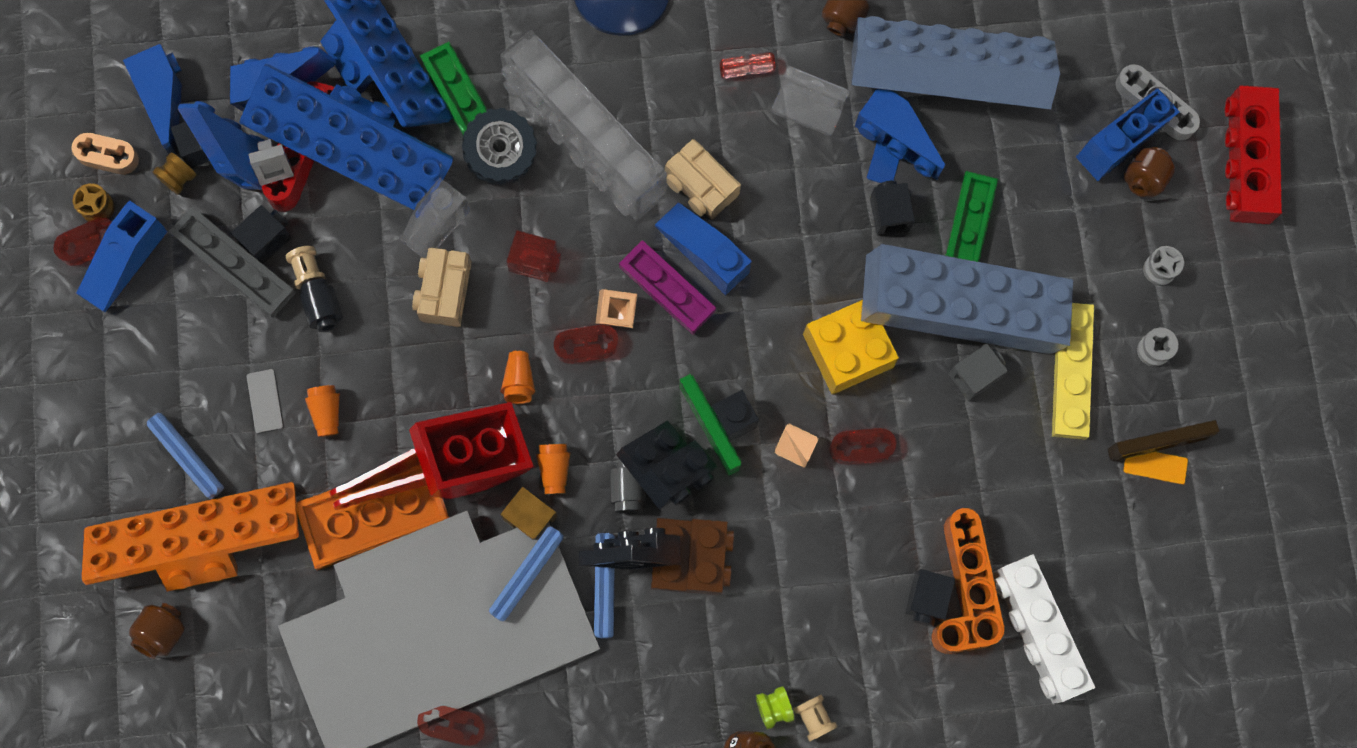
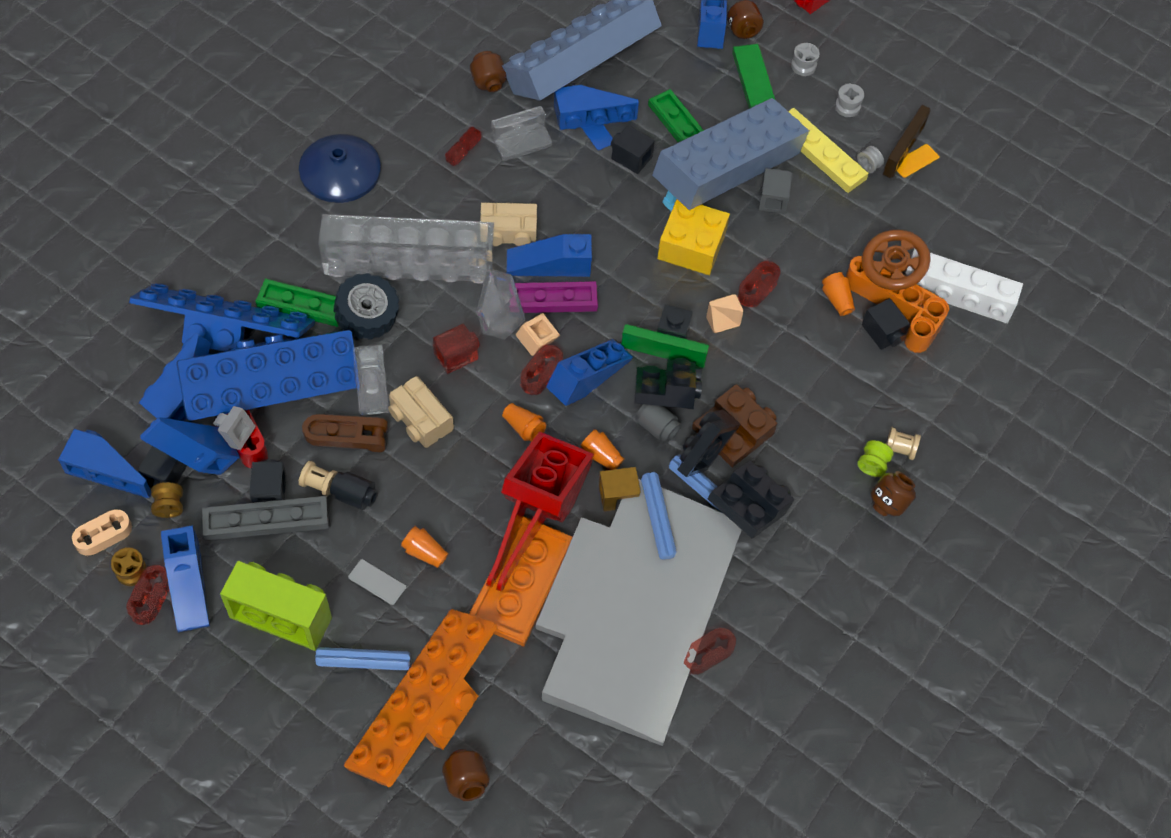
camera: 45 degrees left, 15 degrees down
(156, 348) = (276, 604): none -> lime brick
(368, 245) = (345, 431): none -> reddish brown plate
(607, 251) = (499, 305): none -> clear slope
(621, 383) = (586, 371): none -> blue slope
(624, 636) = (752, 499): none -> black plate
(922, 526) = (839, 293): none -> orange cone
(977, 570) = (898, 280): none -> dark orange plate
(1093, 239) = (752, 74): none -> green tile
(1106, 425) = (870, 159): none -> light grey bush

